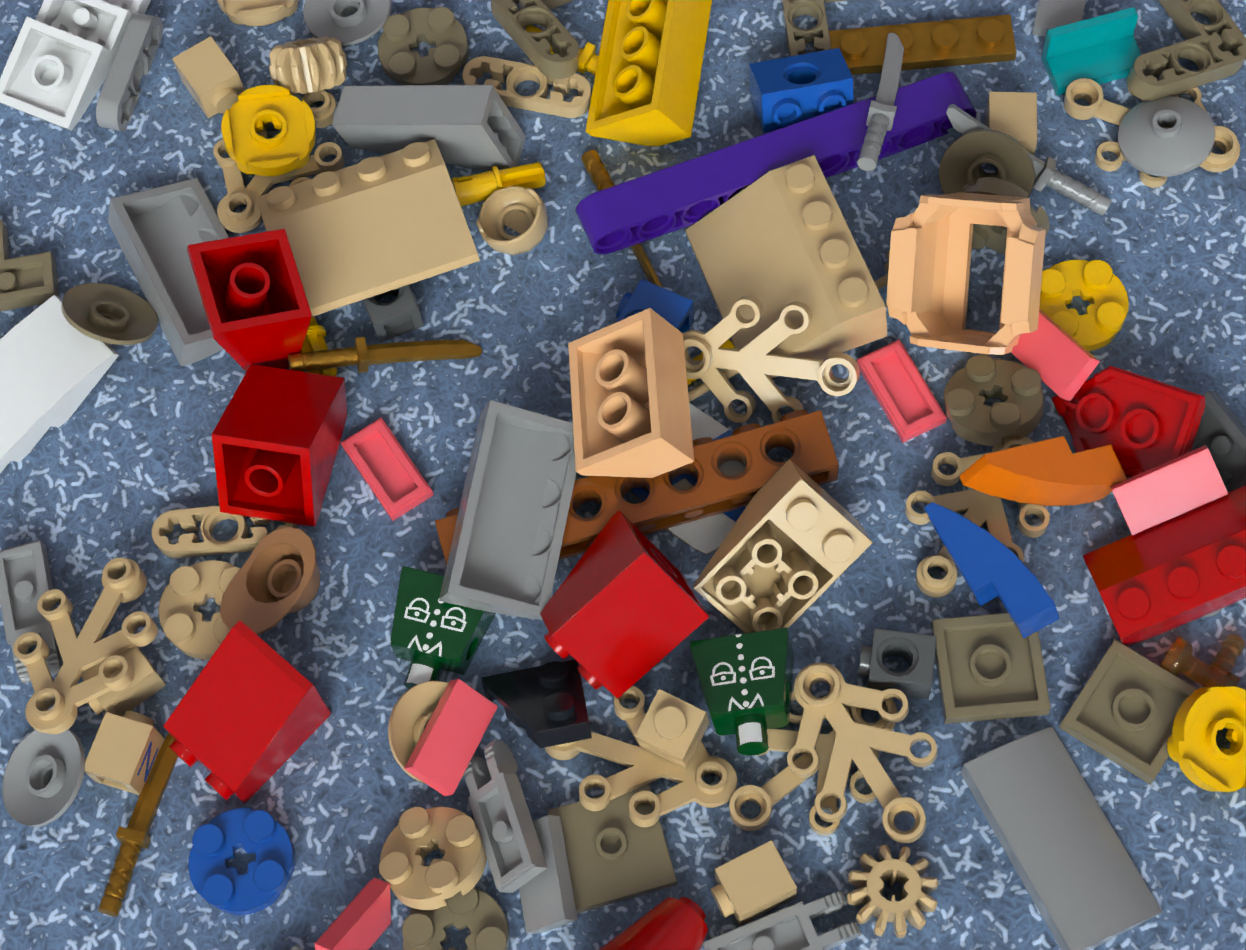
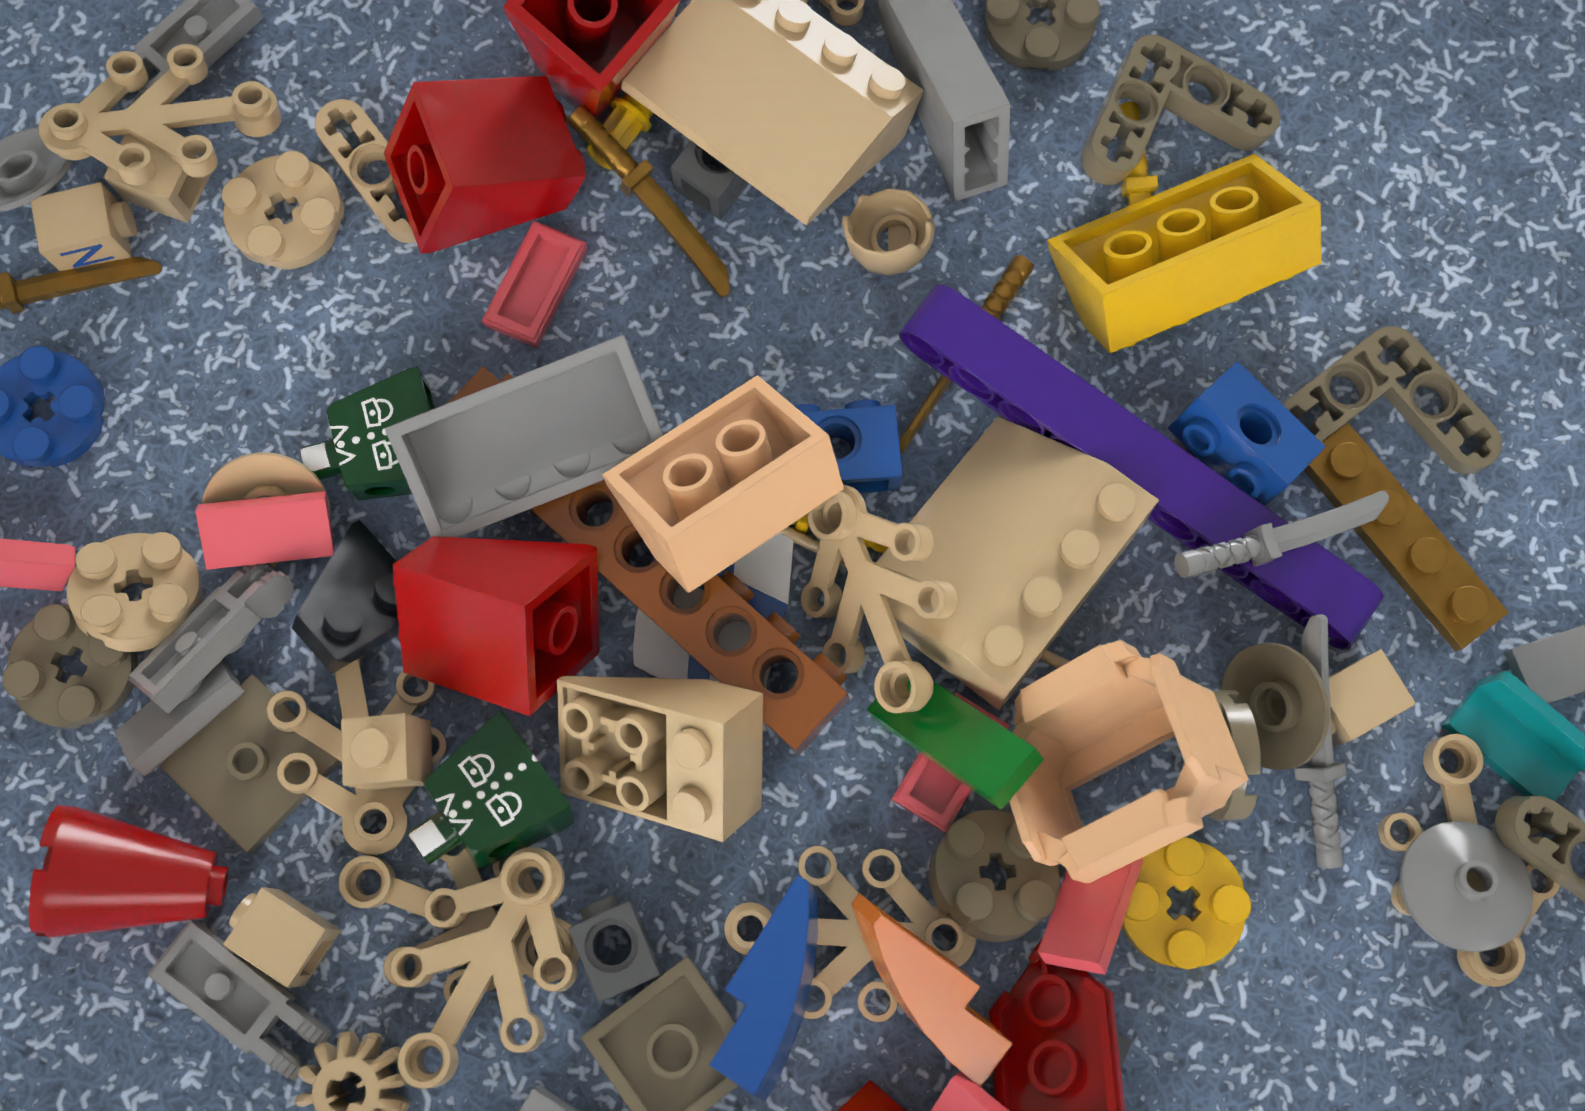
camera: 50 degrees right, 10 degrees up
(244, 715) = (180, 315): red slope -> none
(273, 581) = (332, 251): medium nougat piece -> none
(480, 186) = (911, 174): yellow axle -> none
(538, 102) = (1073, 128): tan beam -> none
(894, 364) = (964, 744): none -> green tile

